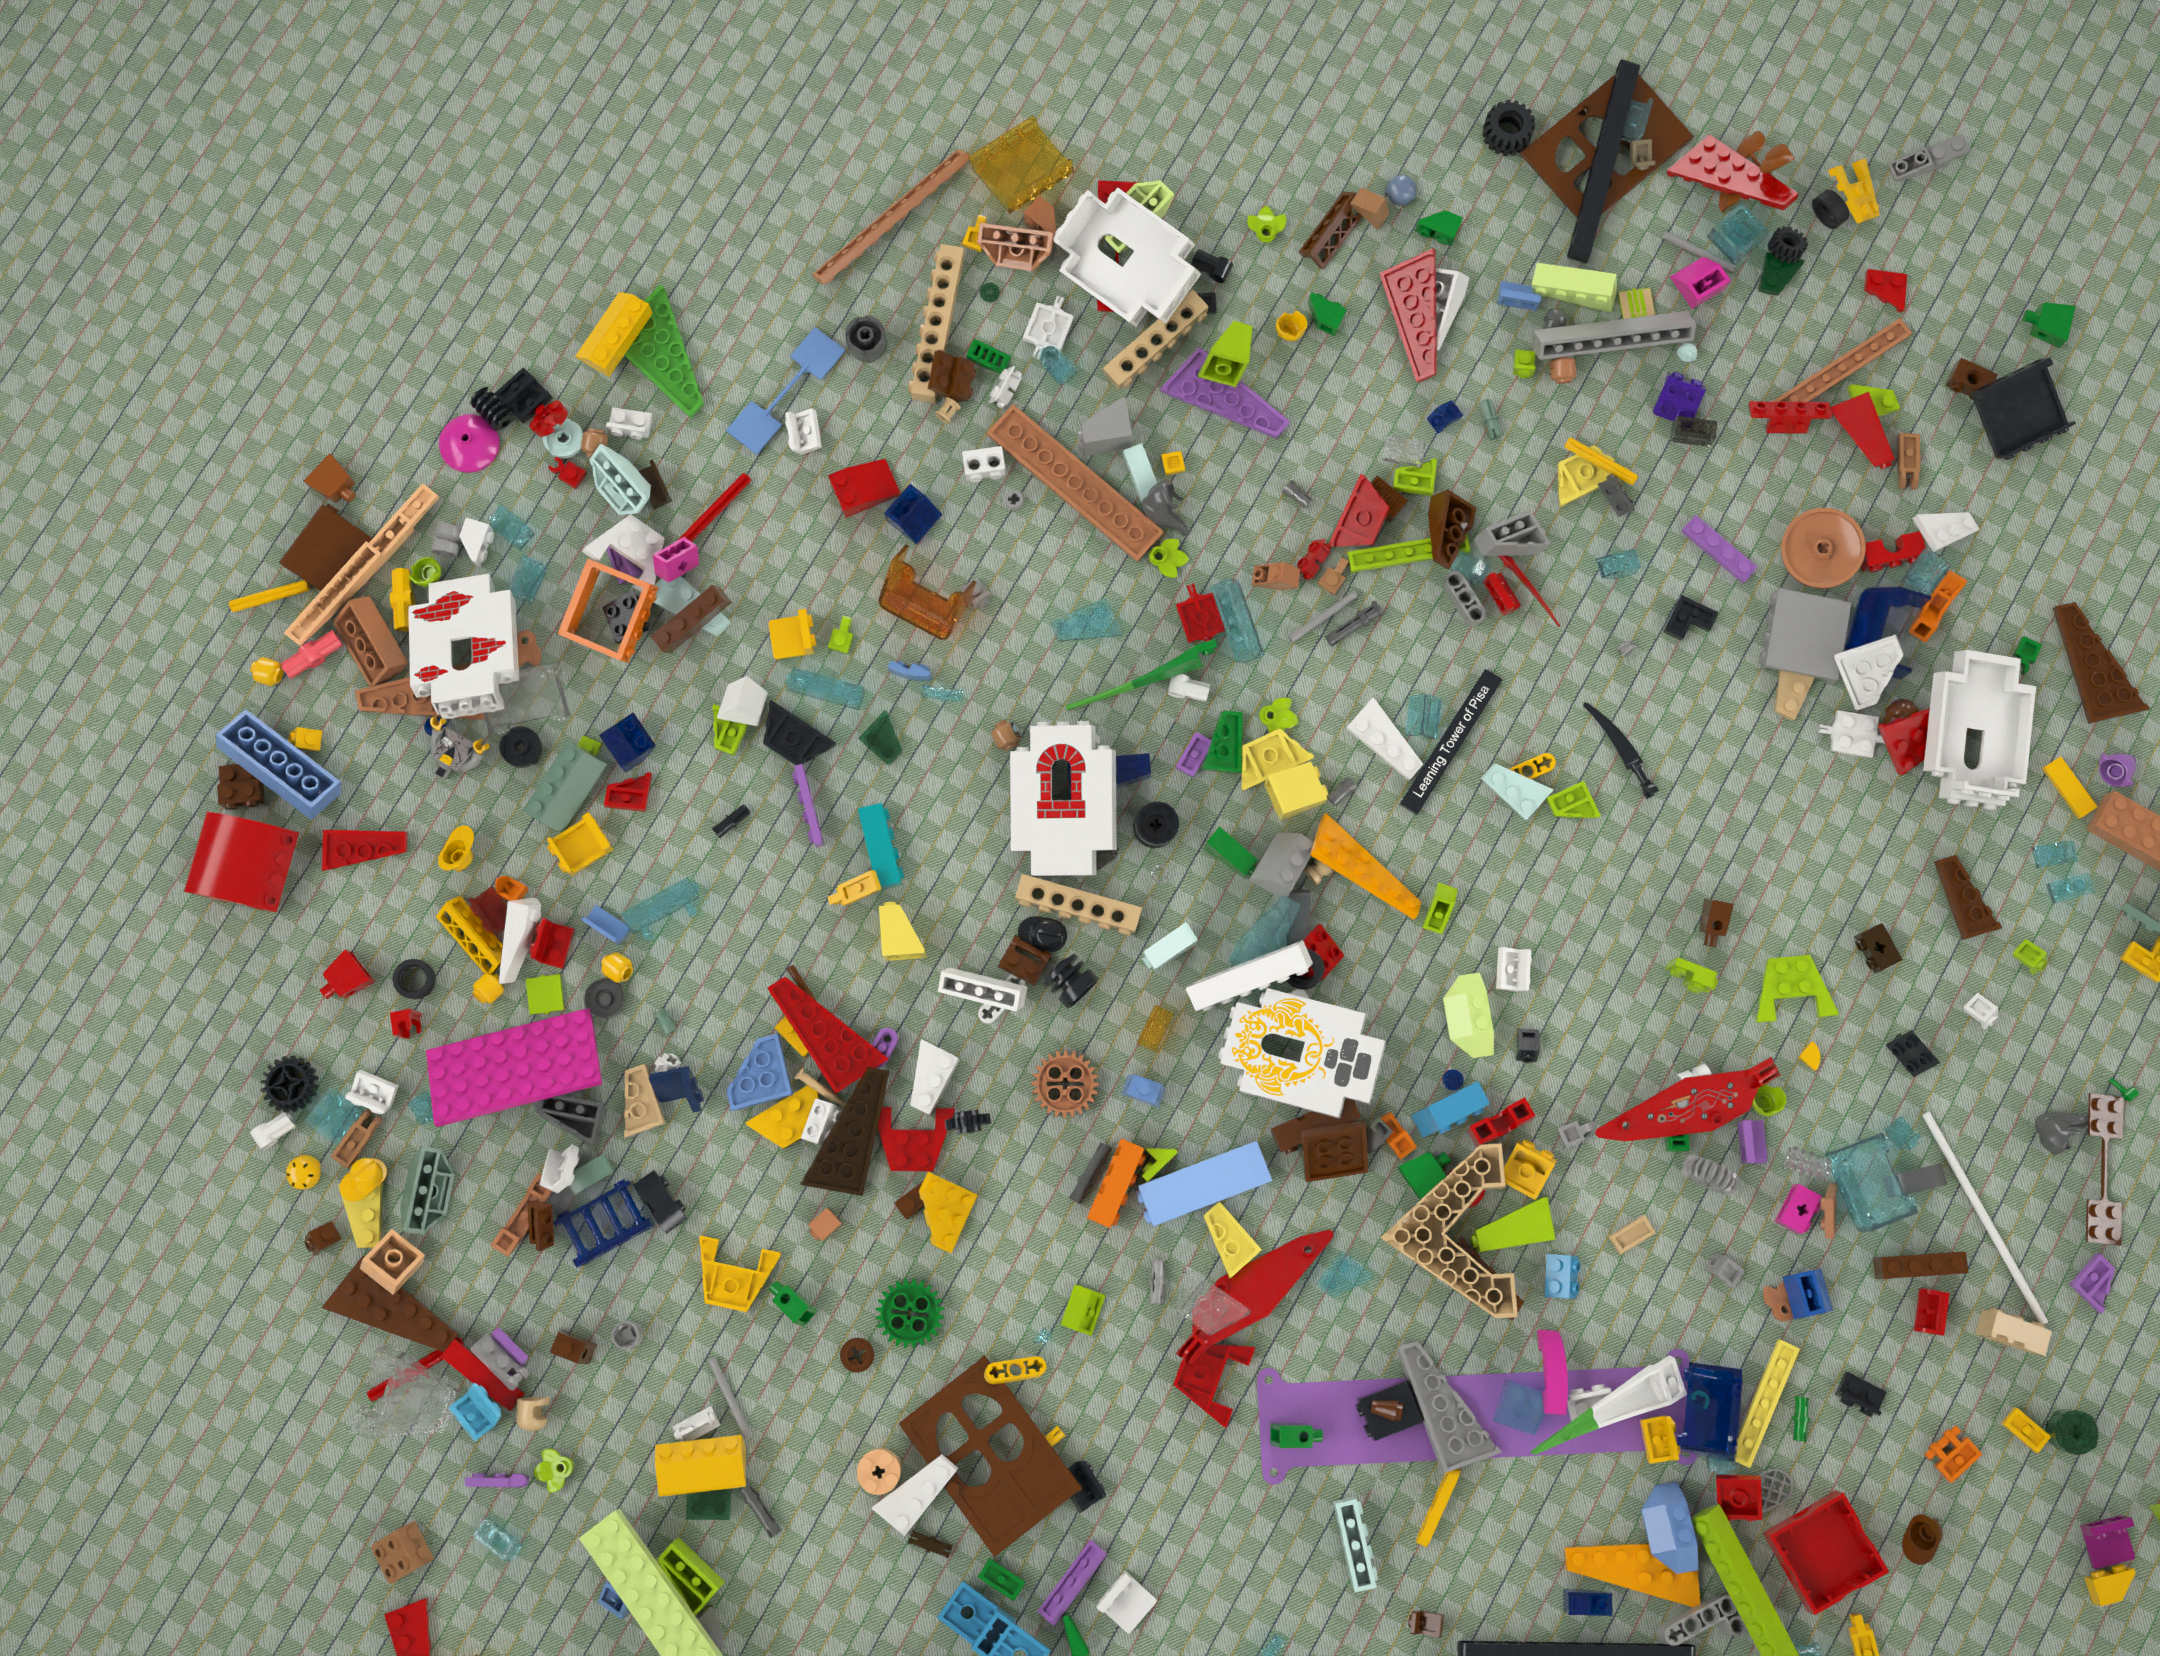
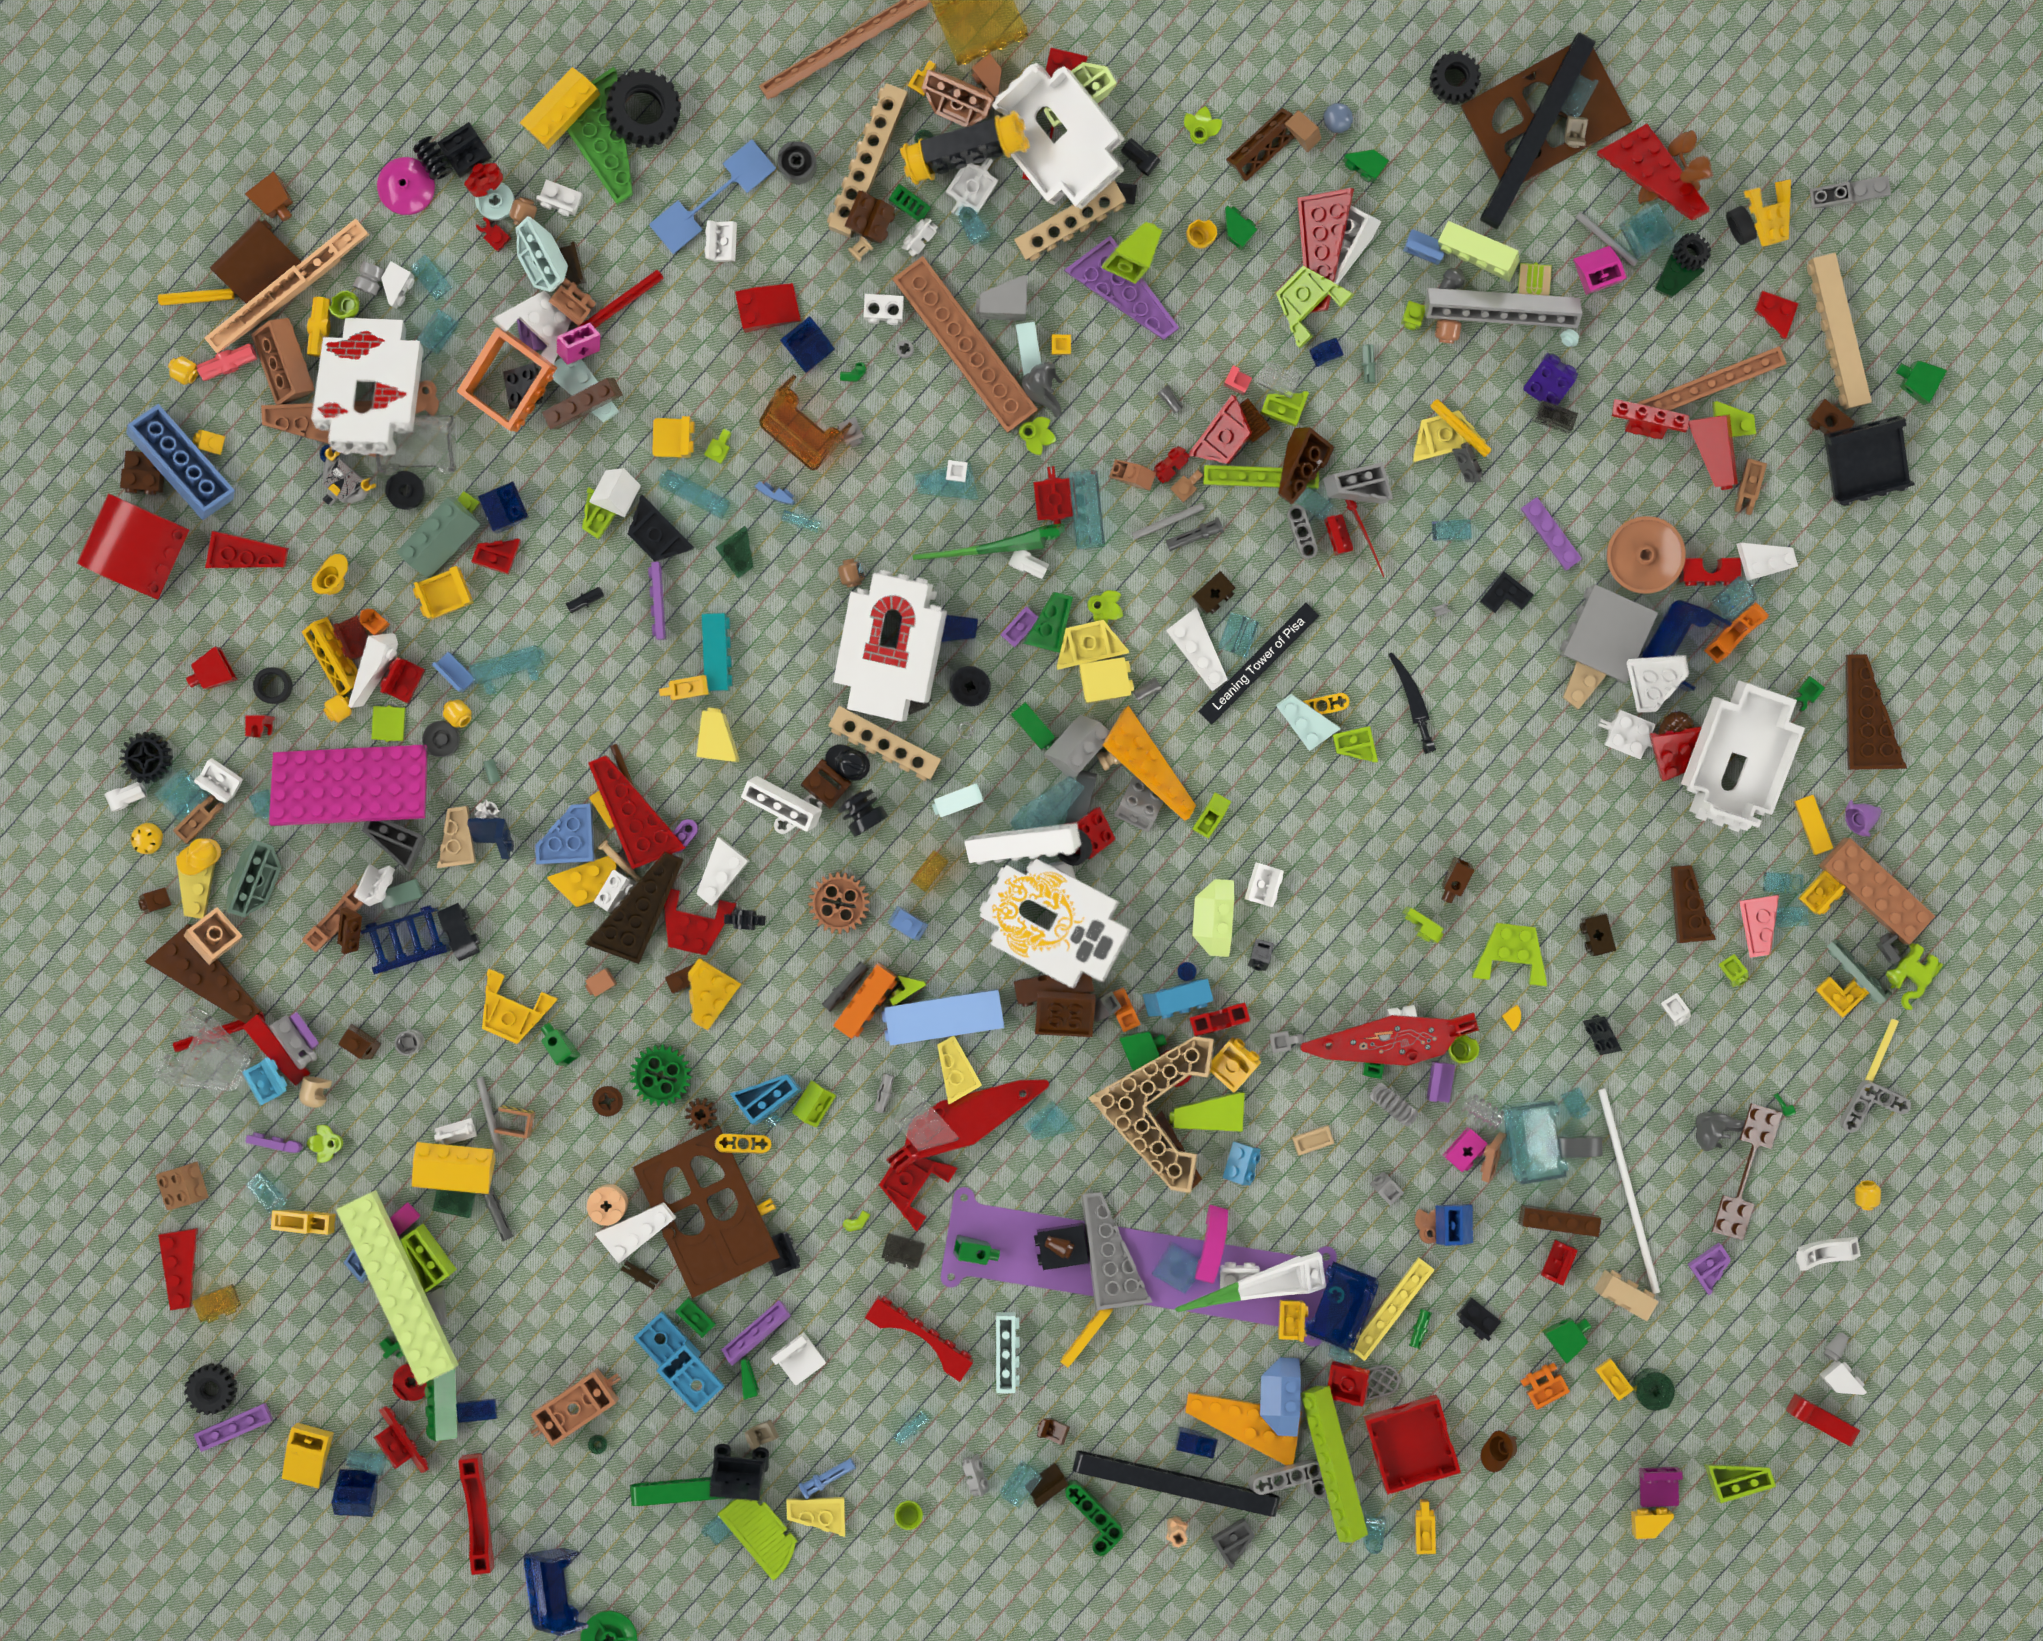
camera: 10 degrees right, 10 degrees up
(544, 1564) = (303, 1221): none -> yellow slope
(656, 1535) = (404, 1218): none -> dark pink slope
(661, 520) = (569, 304): none -> nougat plate
(705, 293) = (650, 84): none -> black tyre
(776, 1399) = (531, 1114): none -> nougat piece
(957, 1341) = (705, 1119): none -> reddish brown gear
(968, 535) = (855, 375): none -> green arm
(1030, 1313) = (765, 1098): none -> dark azure wedge
(1033, 286) = (964, 147): none -> brick
(1094, 608) = (956, 471): none -> white plate
(1158, 1434) = (857, 1224): none -> lime arm
(1212, 1531) = (885, 1315): none -> red arch
(1215, 1453) = (903, 1251): none -> clear smoke bracket
(1361, 463) = (1237, 380): none -> coral panel
(1361, 914) = (1139, 805): none -> light grey bracket
(1390, 667) = (1202, 596): none -> dark brown brick
(1409, 362) = (1302, 295): none -> lime wing
(1956, 292) = (1839, 331): none -> tan brick
(1963, 1394) = (1568, 1337): none -> green torso
(2044, 901) = (1759, 923): none -> coral wing
(2099, 856) = (1822, 893): none -> yellow bracket

